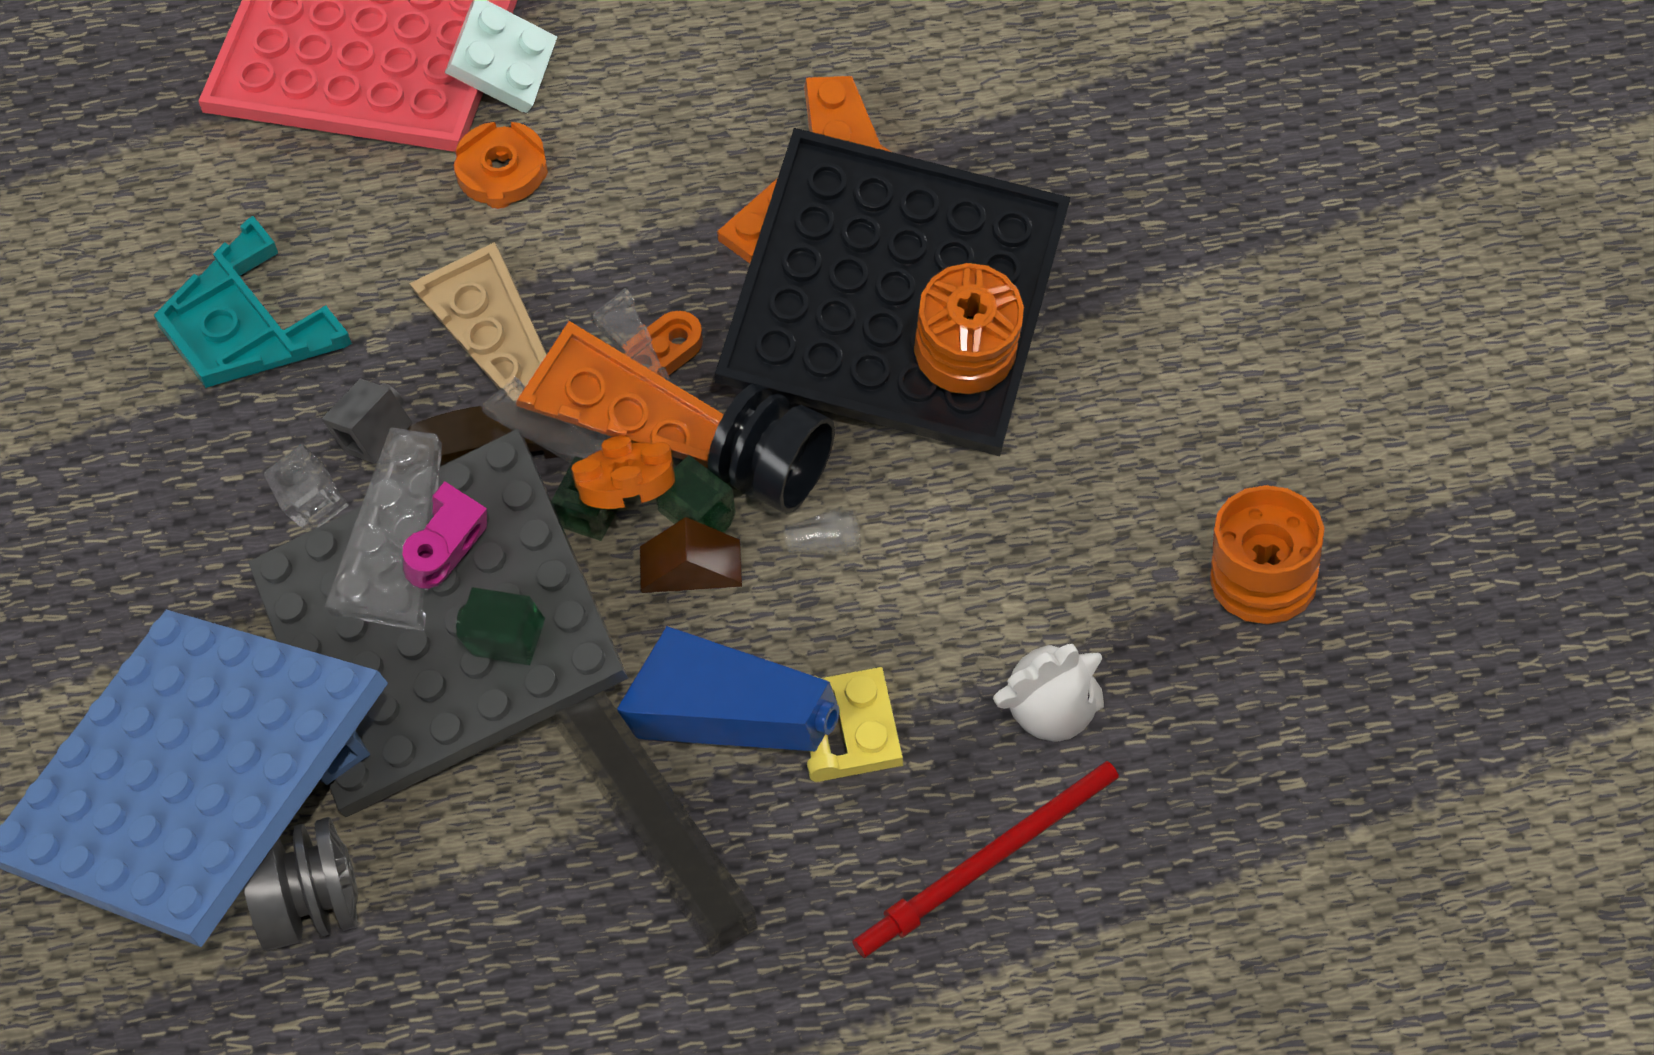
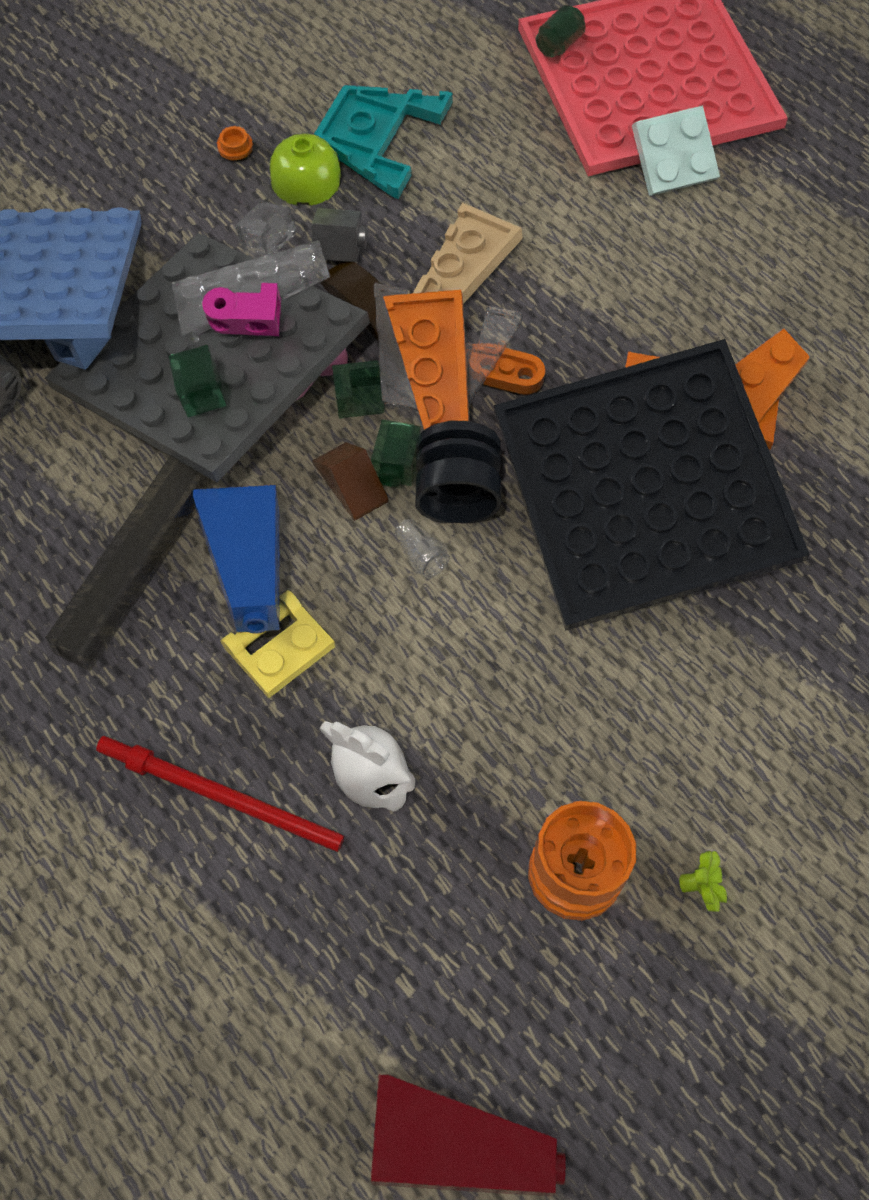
camera: 55 degrees right, 5 degrees up
(143, 468) = (234, 143): none -> orange plate
(242, 413) = (304, 169): none -> lime cylinder
(262, 68) = (560, 31): none -> clear green brick
(506, 184) = (587, 216): orange plate -> none
(624, 472) = (374, 392): orange plate -> none
(966, 352) = (624, 562): orange wheel -> none
(1338, 472) = (706, 881): none -> lime plant
(1472, 811) = (454, 1146): none -> dark red slope

